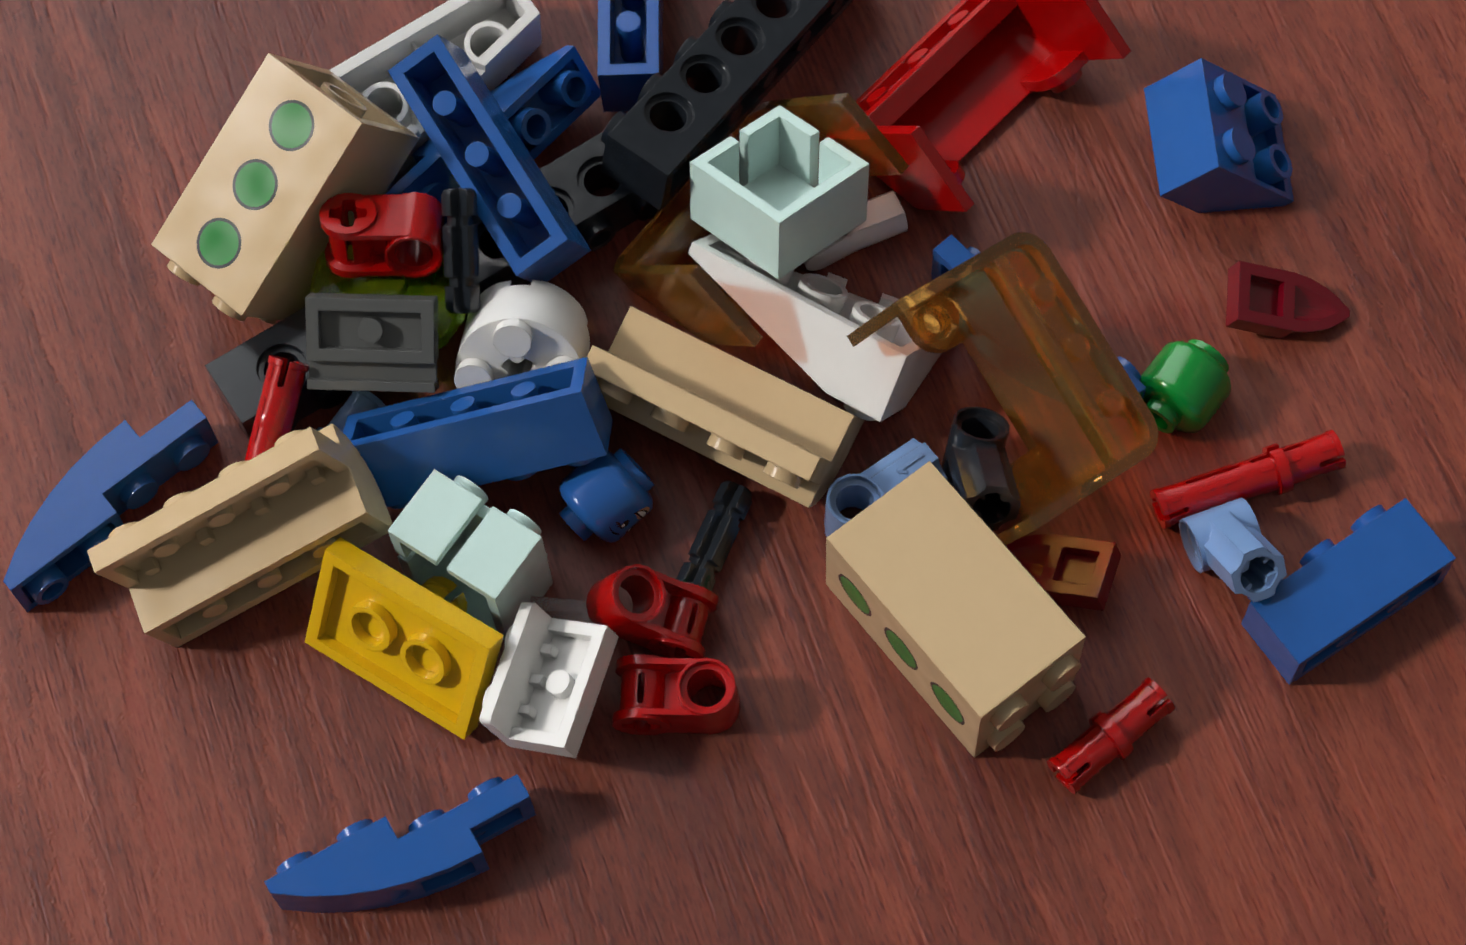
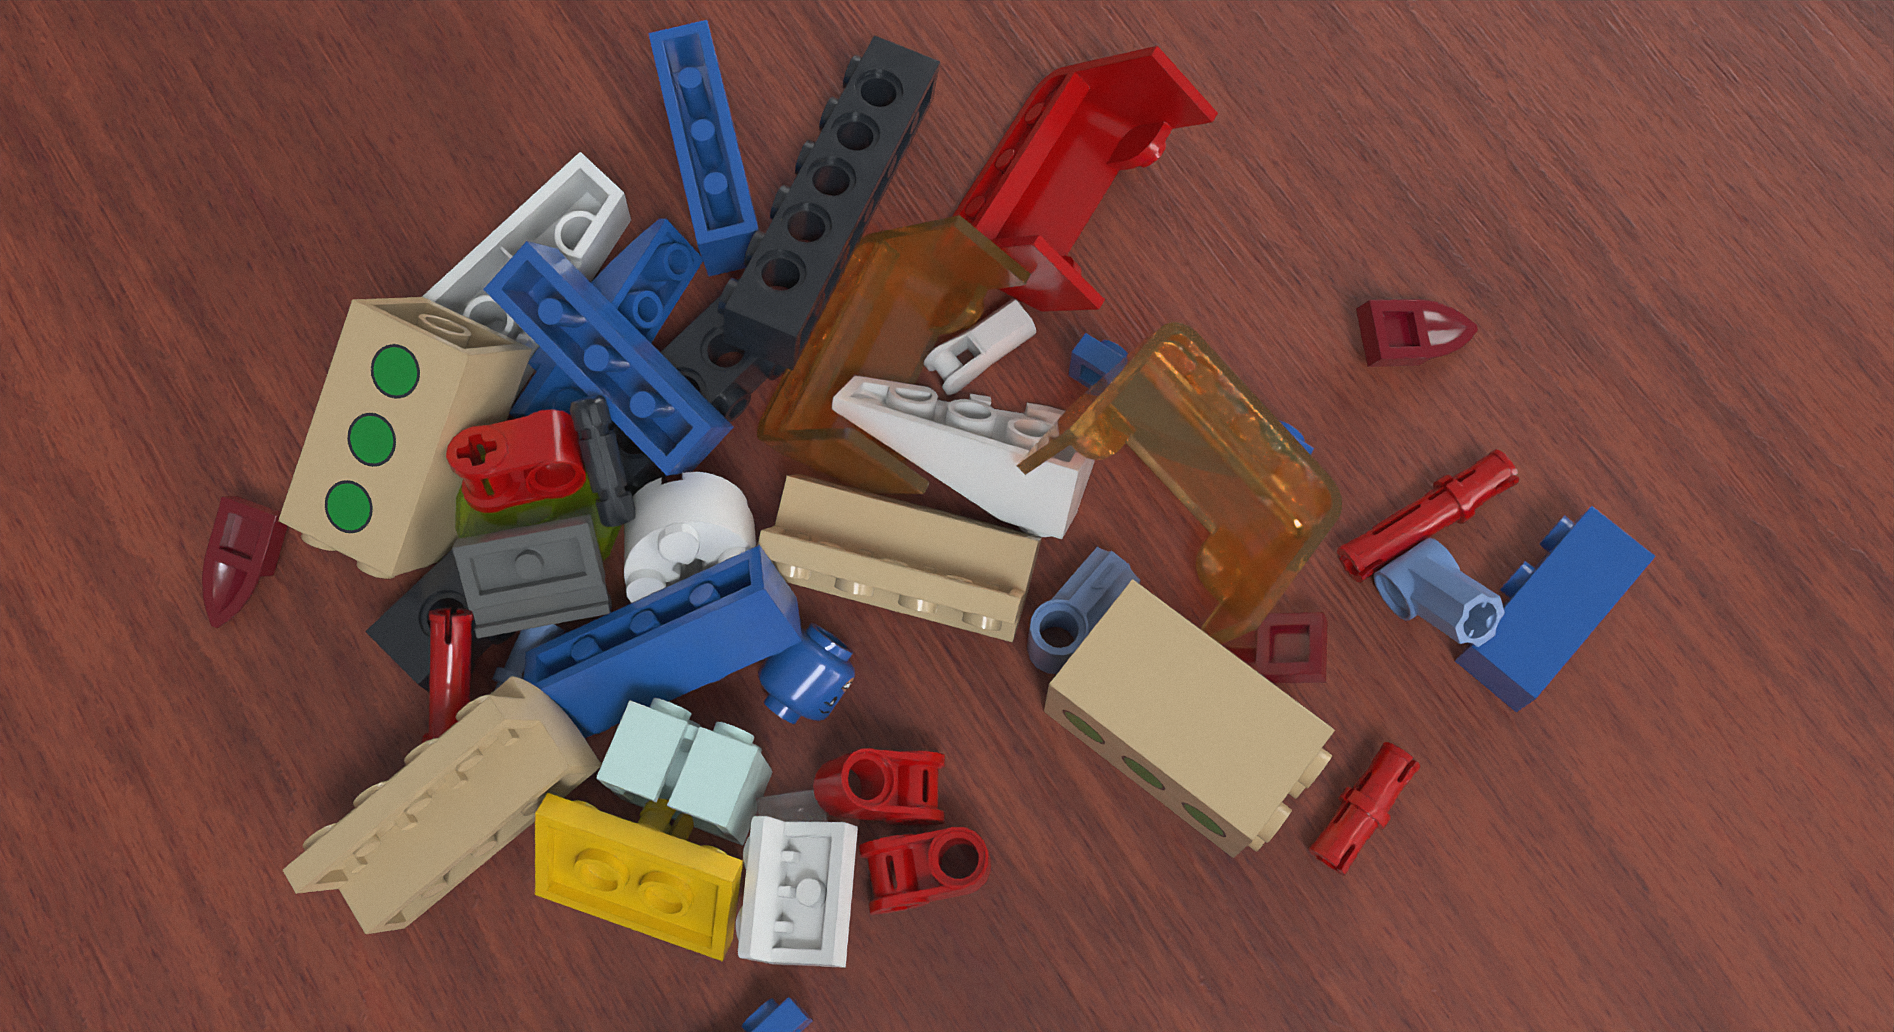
camera: 15 degrees left, 5 degrees up
(88, 501) = (275, 802): blue slope -> none
(103, 274) = (239, 553): none -> dark red plate
(716, 535) = (924, 691): black axle -> none
(770, 193) = (907, 346): light aqua piece -> none
(980, 465) = (1173, 566): black piece -> none
(1186, 385) = (1346, 433): green head -> none
(1217, 141) = (1312, 183): blue slope -> none

